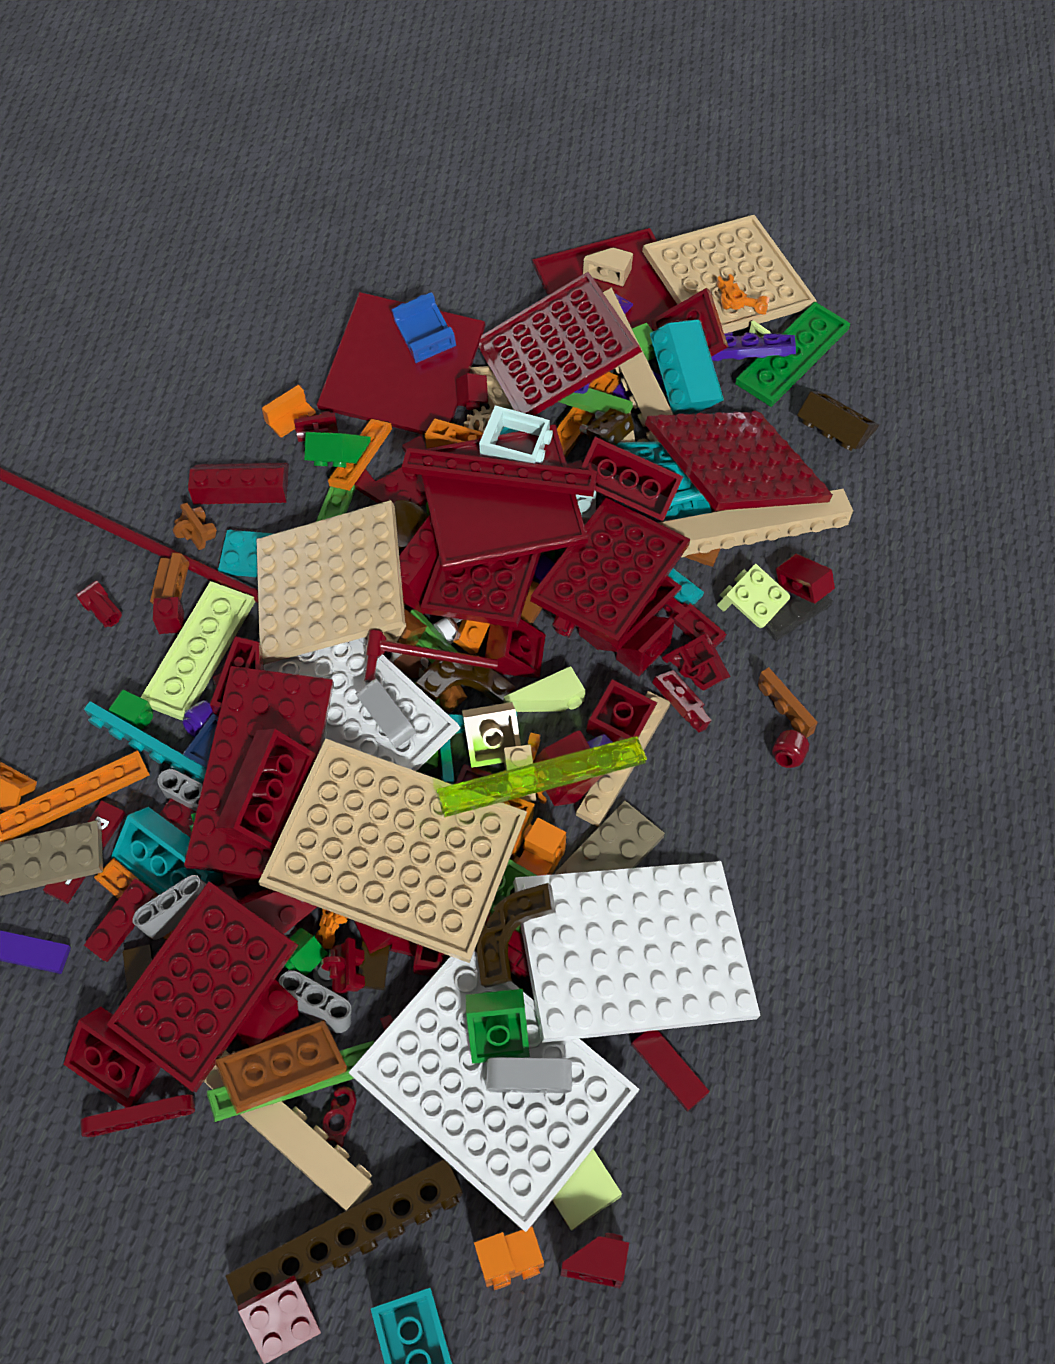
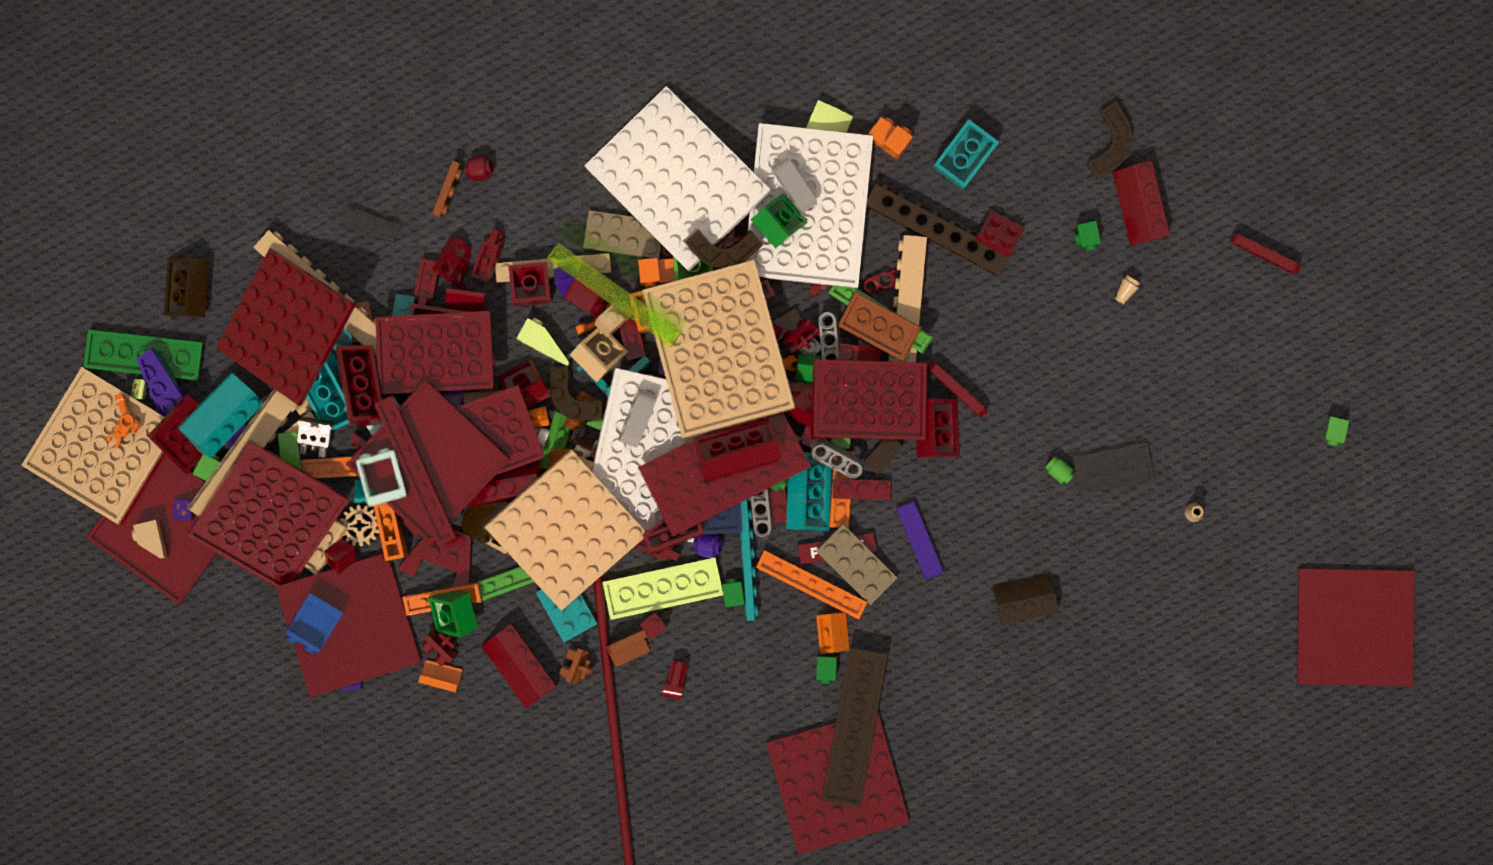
camera: 125 degrees left, 25 degrees up
(378, 645) = (593, 458): dark red bar -> none
(599, 1261) = (860, 88): dark red slope -> none
(670, 1068) = (730, 116): dark red tile -> none
(755, 596) = (380, 256): yellowish green bracket -> none
(805, 578) = (345, 230): dark red brick -> none

